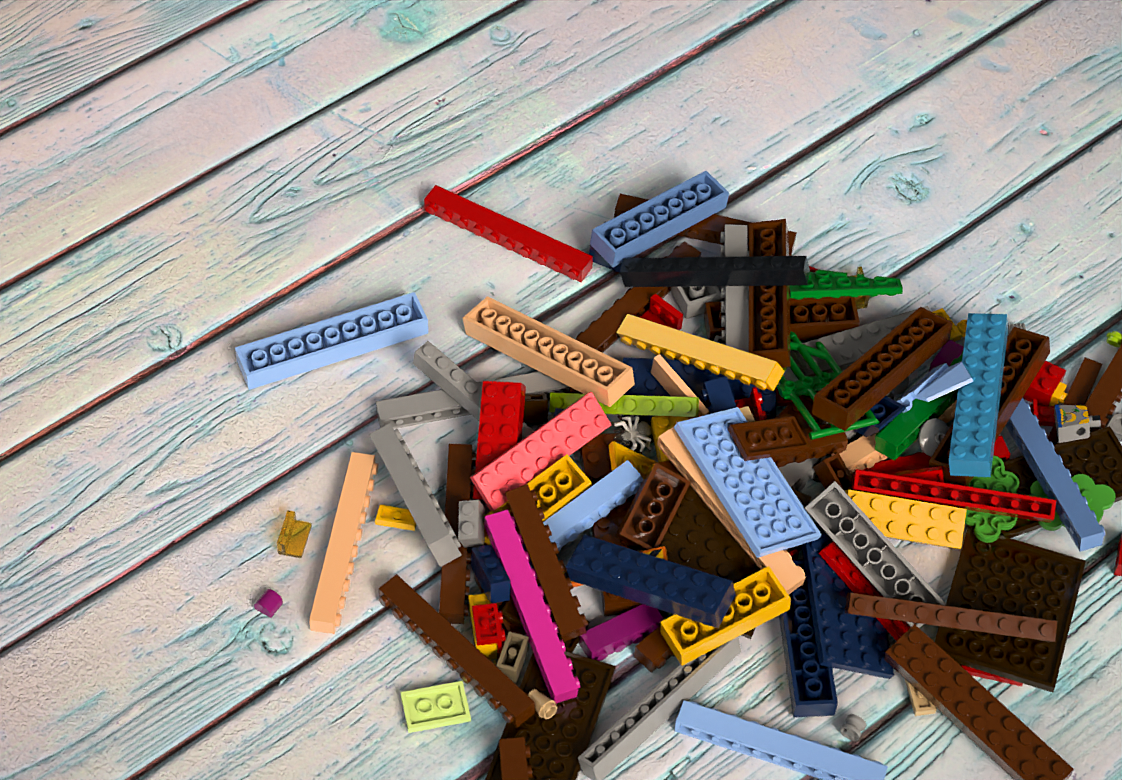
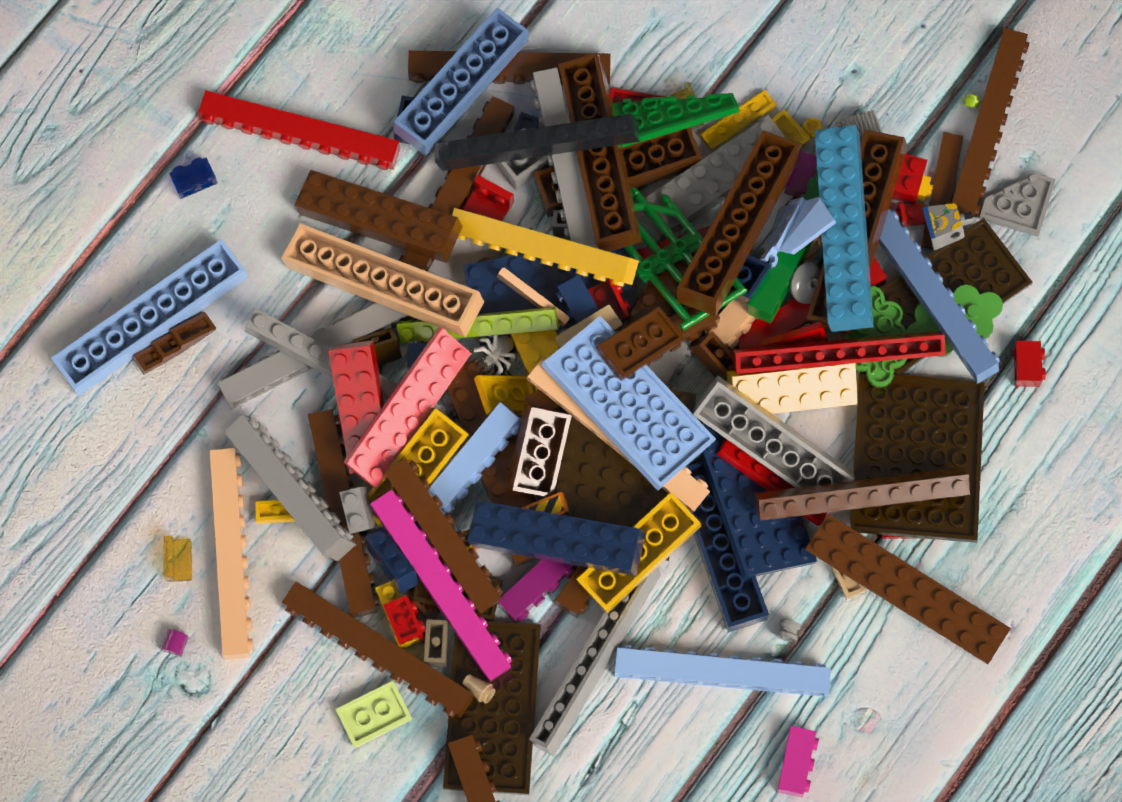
camera: 10 degrees left, 20 degrees up
(351, 366) = (174, 343): none -> reddish brown slope
(404, 248) = (193, 177): none -> clear blue brick
(559, 306) = (378, 216): none -> reddish brown brick
(899, 307) = (735, 123): none -> yellow tile

